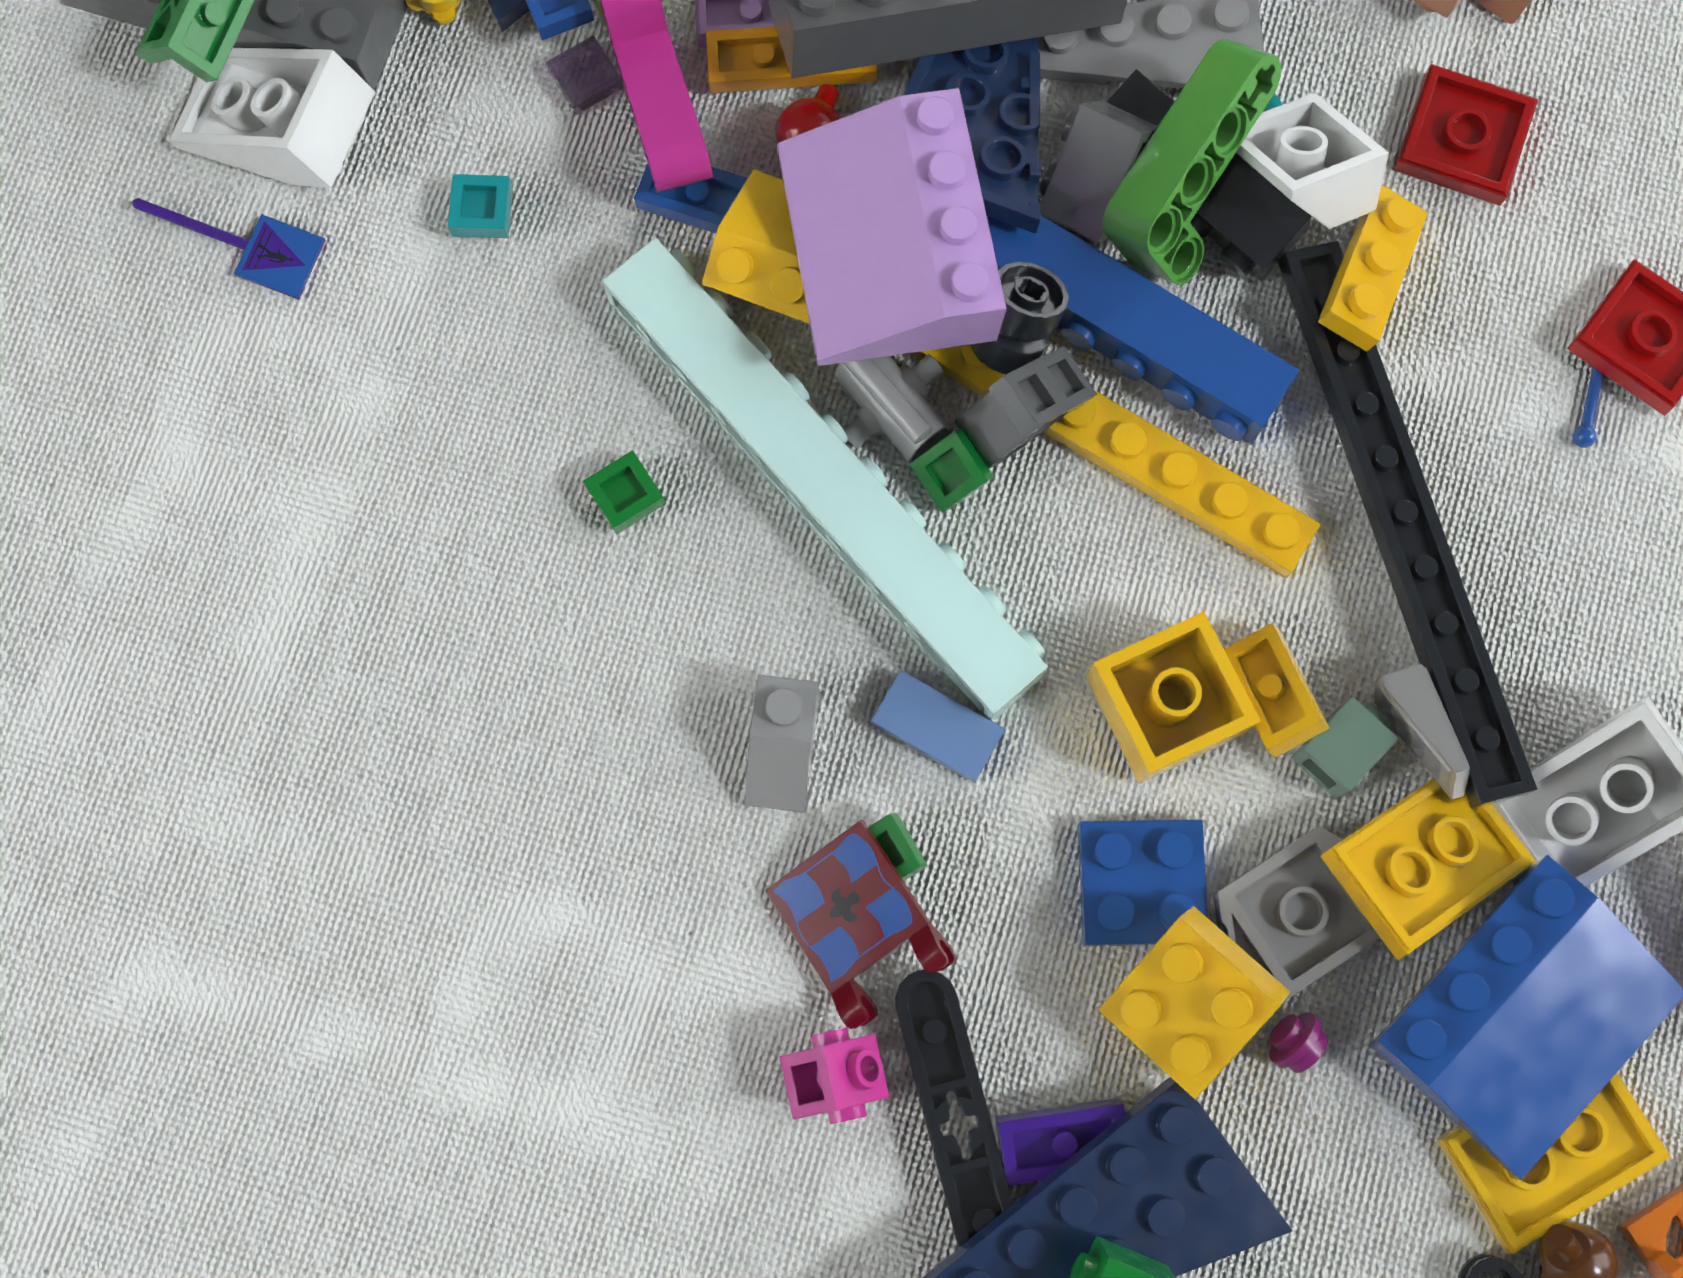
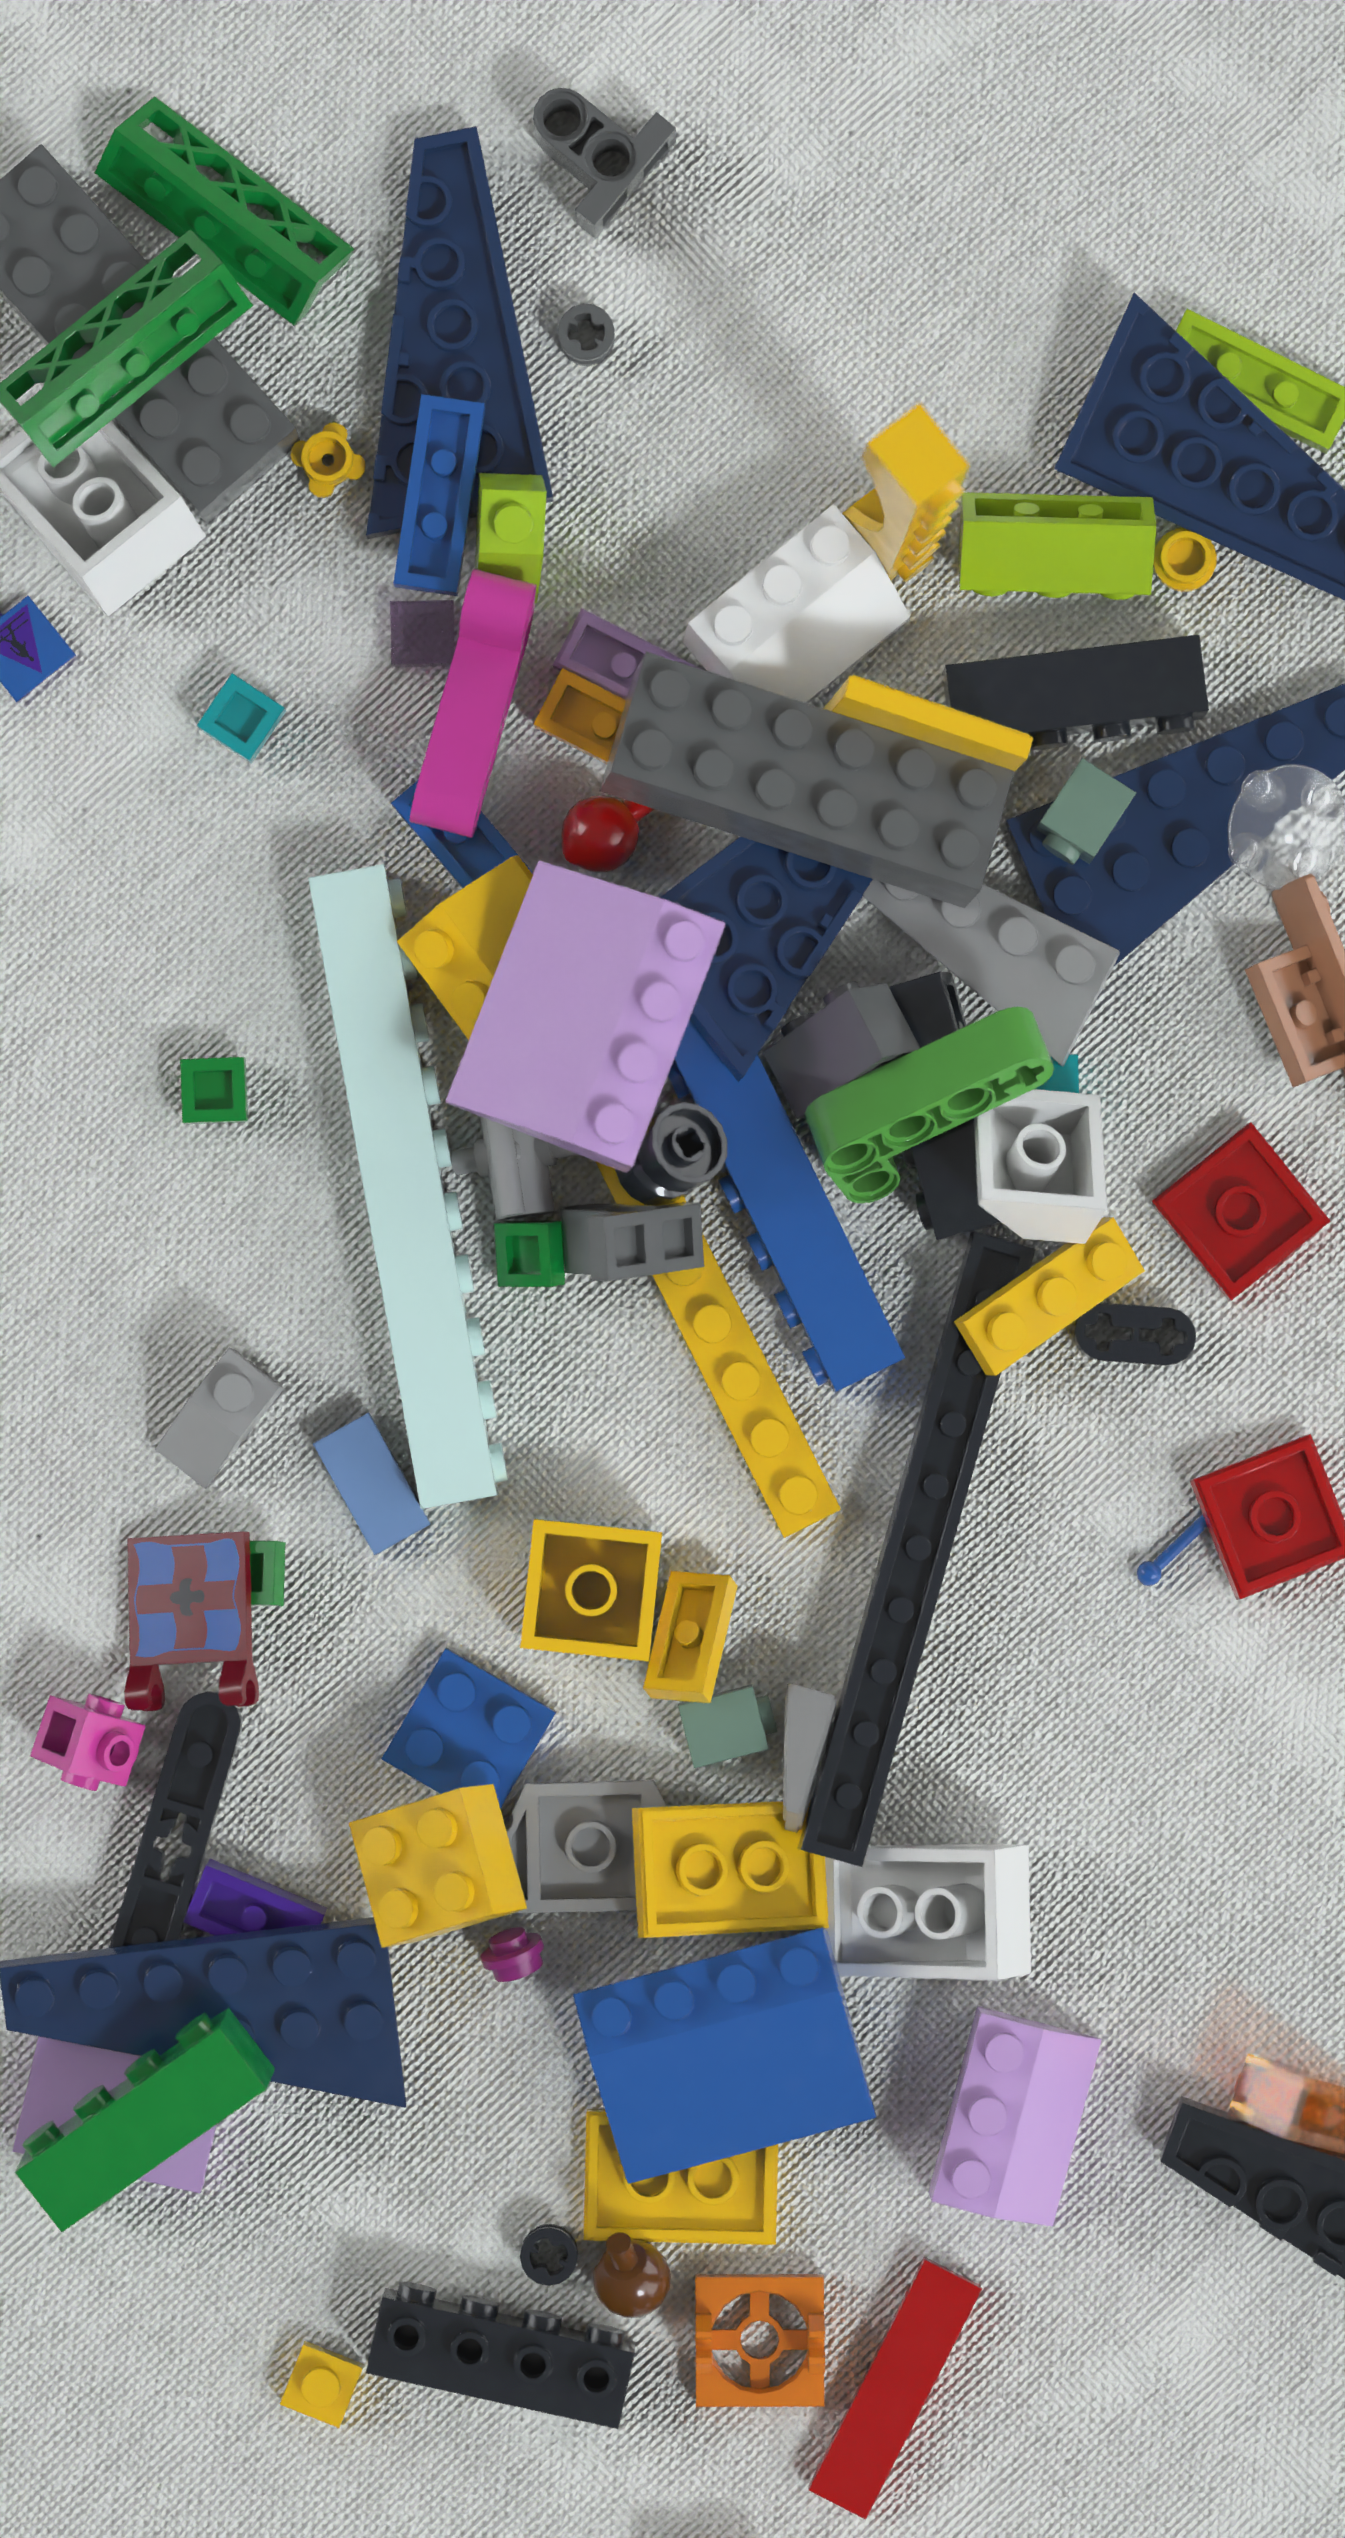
camera: 30 degrees right, 10 degrees up
(1456, 275) = (1133, 1350): none -> black beam

